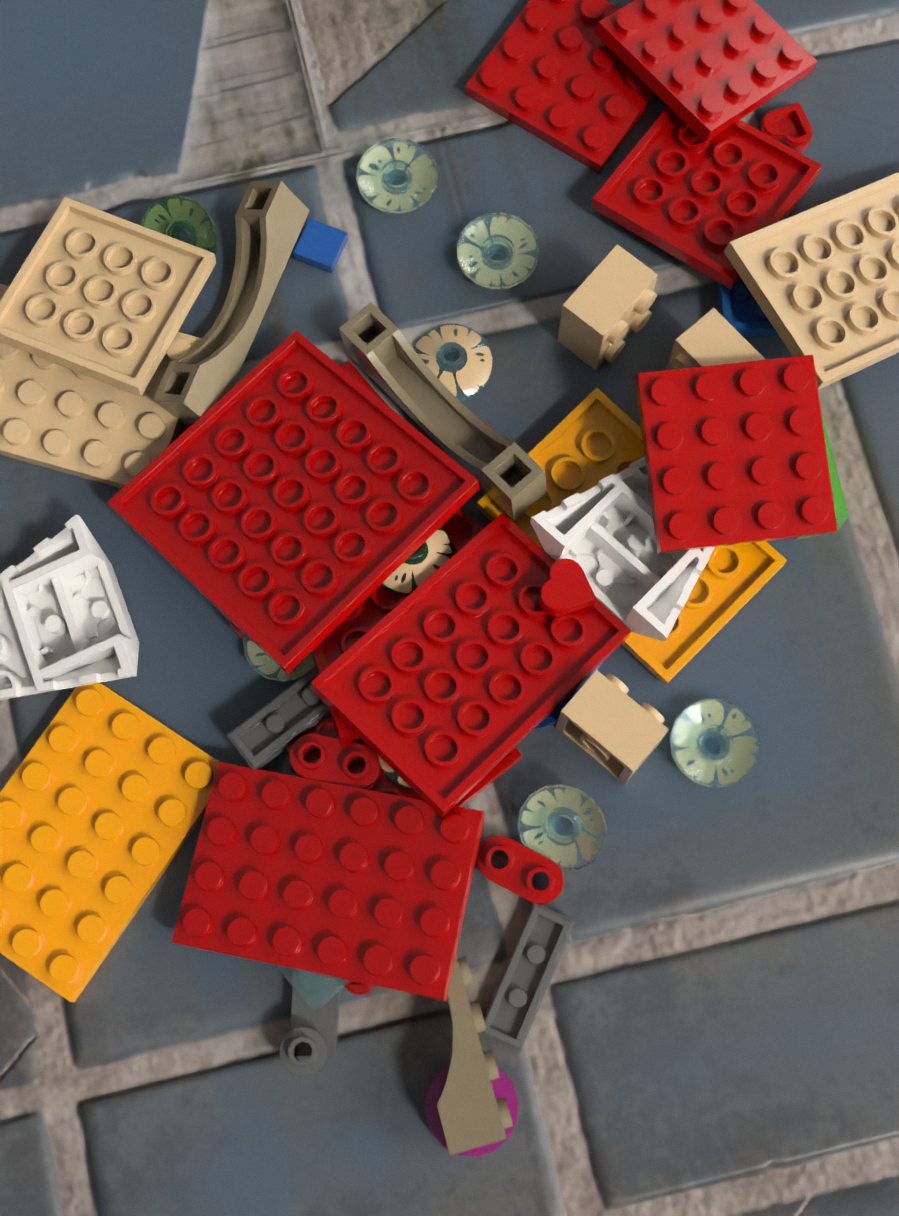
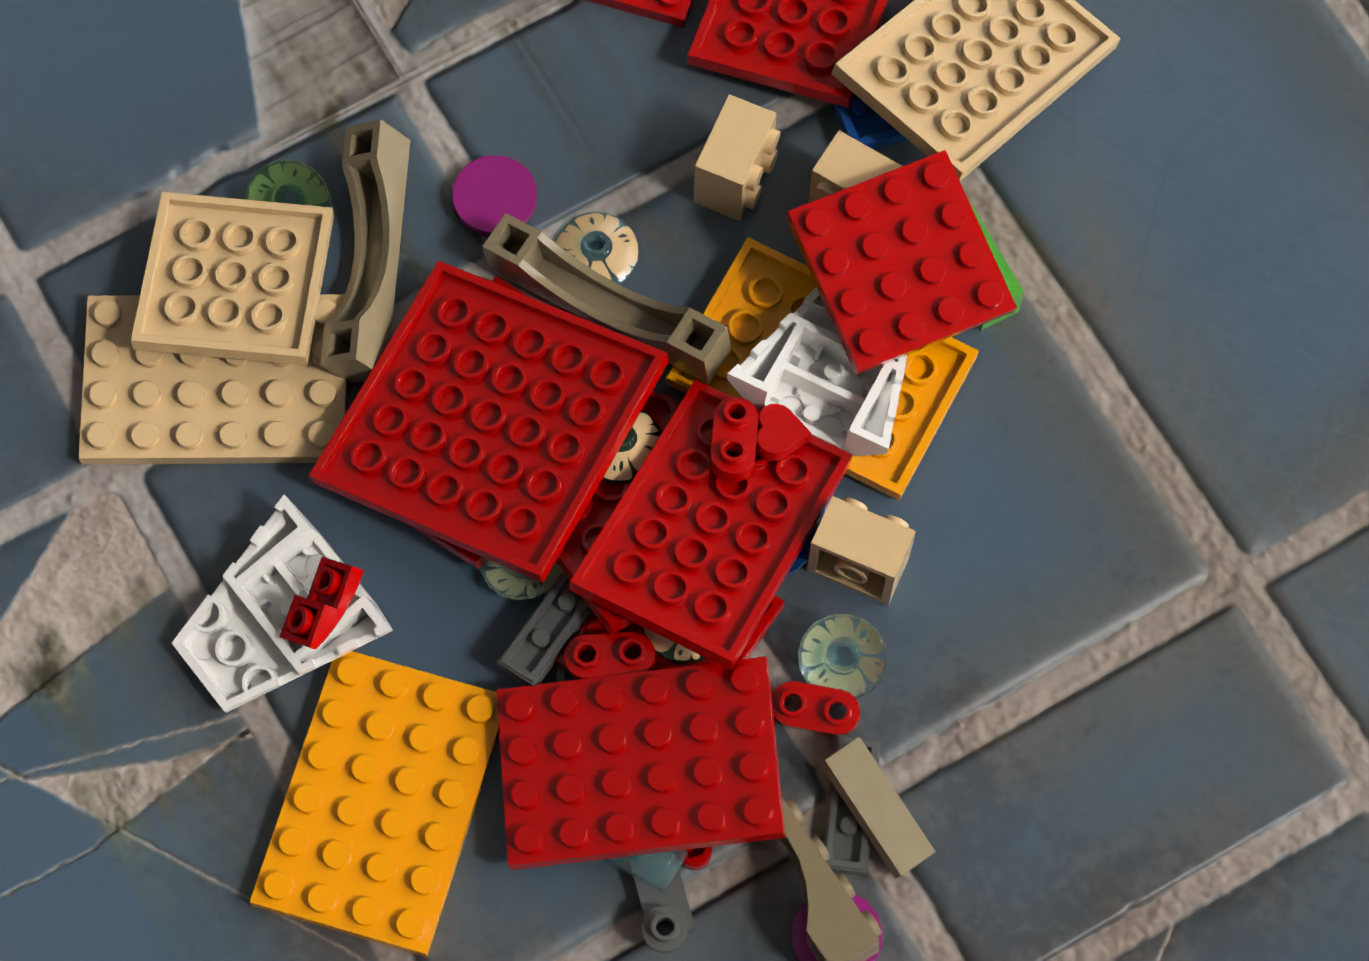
camera: 20 degrees left, 5 degrees down
(69, 640) = (315, 617): none -> red slope
(320, 245) = (430, 172): blue tile -> none
(374, 276) = (490, 189): none -> magenta tile
(393, 161) = (486, 67): clear light blue dish -> none
(501, 235) = (605, 114): clear light blue dish -> none
(520, 580) = (733, 436): none -> red plate
(550, 991) = (877, 807): none -> dark tan tile
(732, 730) = (966, 520): clear light blue dish -> none

